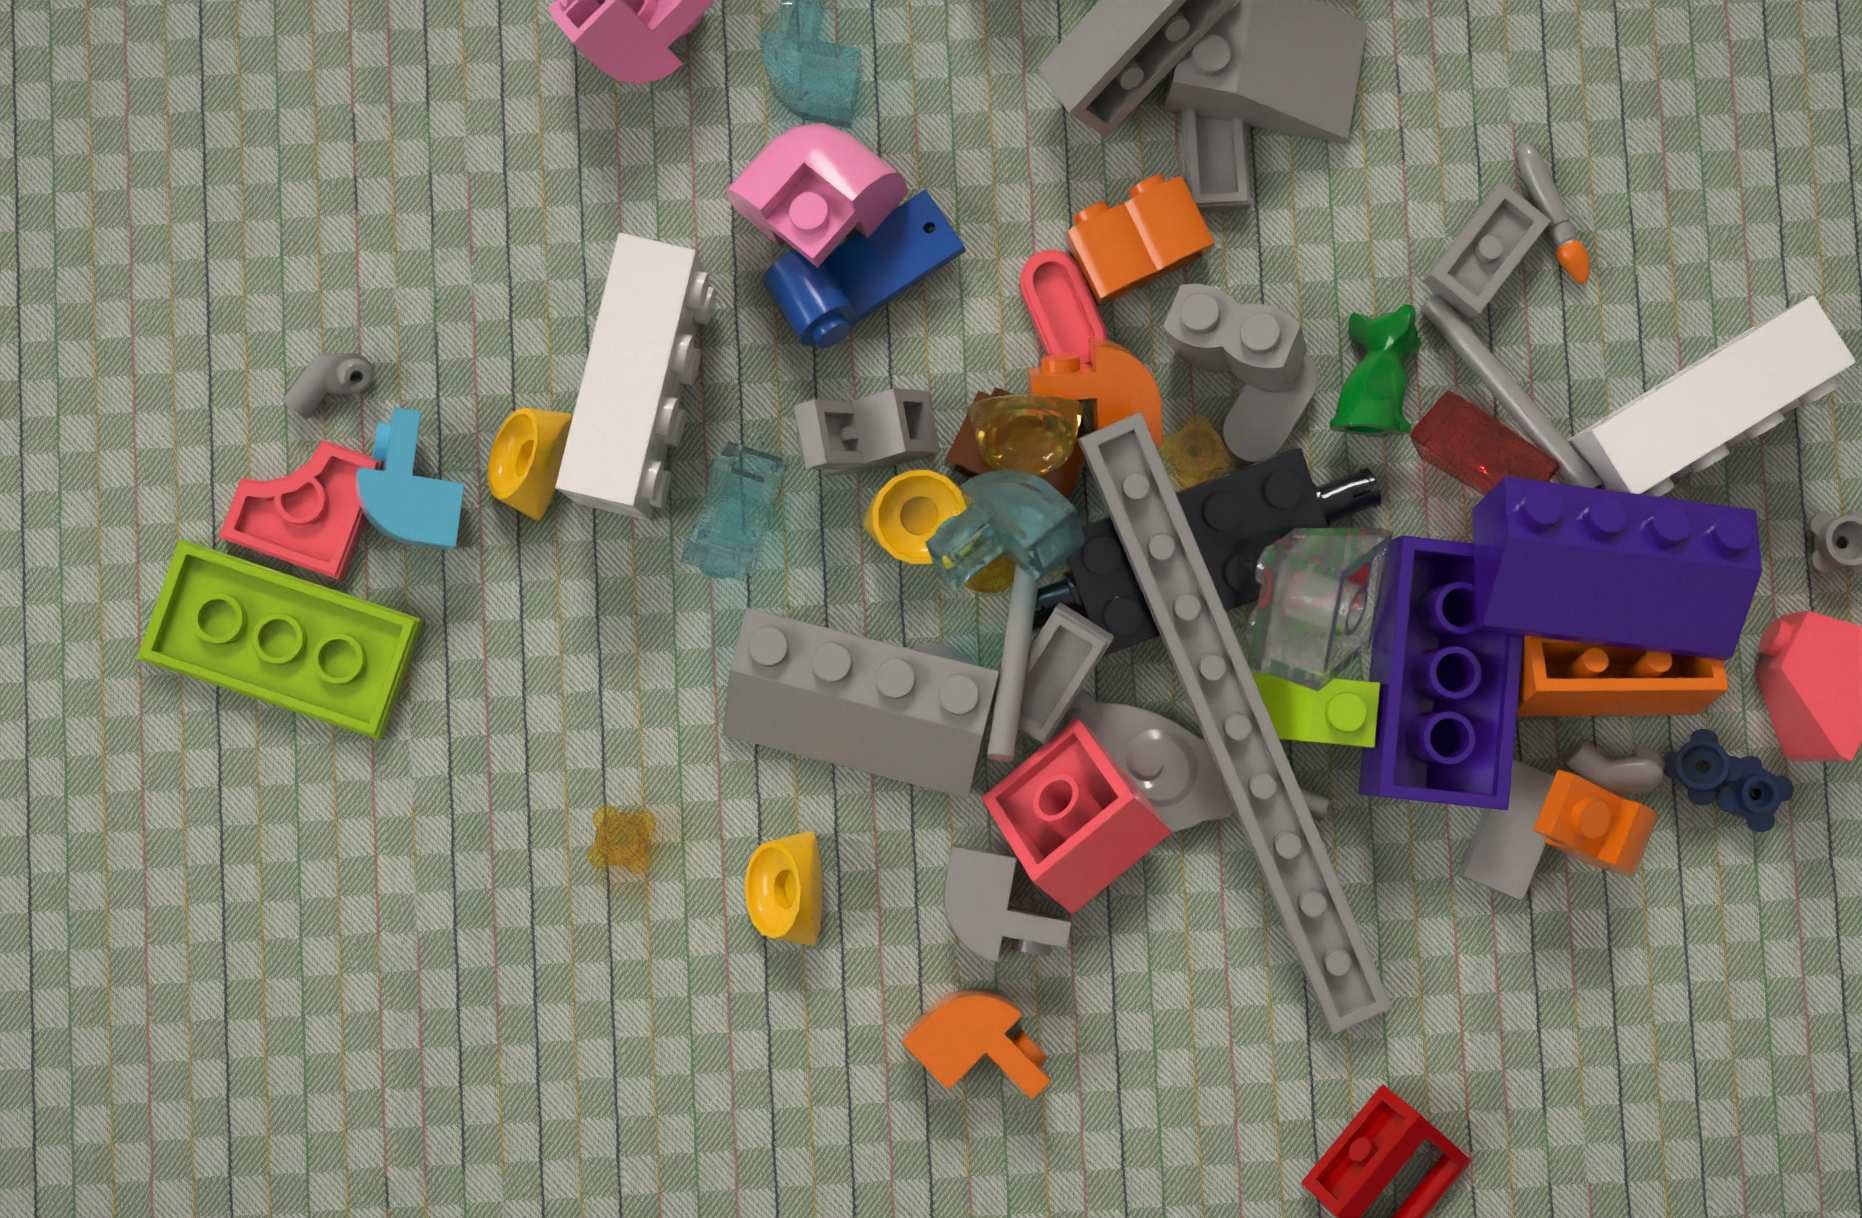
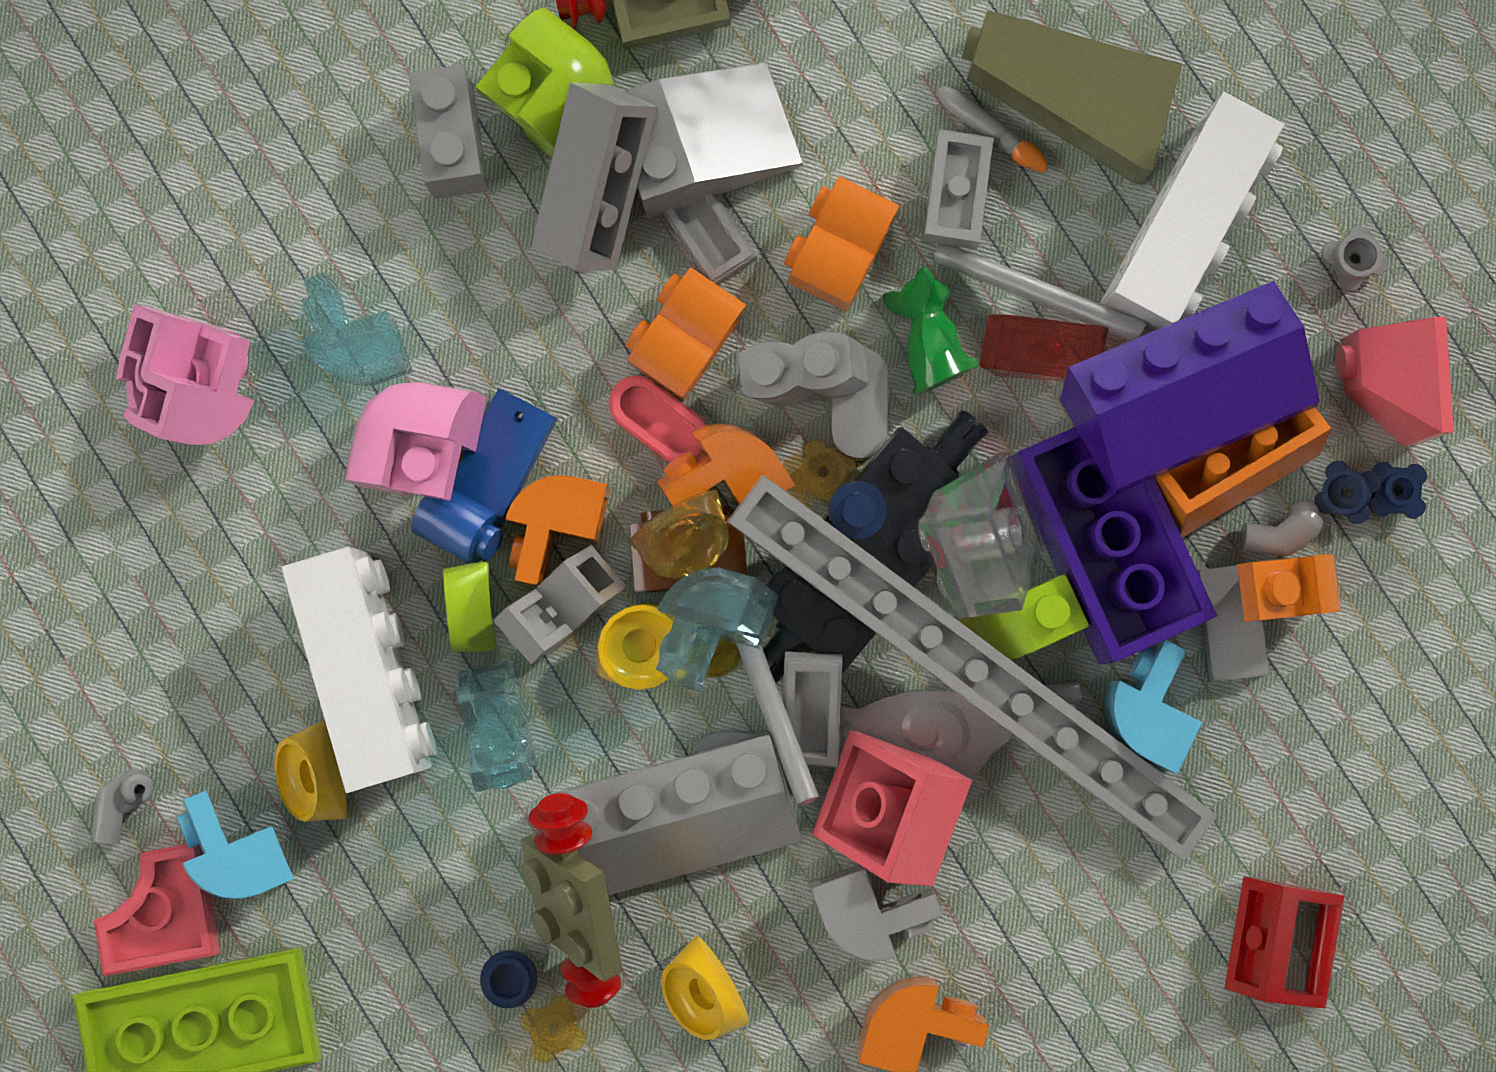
camera: 25 degrees left, 0 degrees up
(606, 766) = (508, 979): none -> dark blue plate
(713, 721) = (571, 900): none -> olive plate
(775, 384) = (469, 608): none -> lime piece
(907, 332) = (553, 507): none -> orange brick
(1212, 501) = (857, 510): none -> dark blue plate
(1342, 238) = (841, 243): none -> orange brick
(1373, 869) = (1140, 718): none -> medium azure brick
(1661, 219) = (1078, 88): none -> olive slope

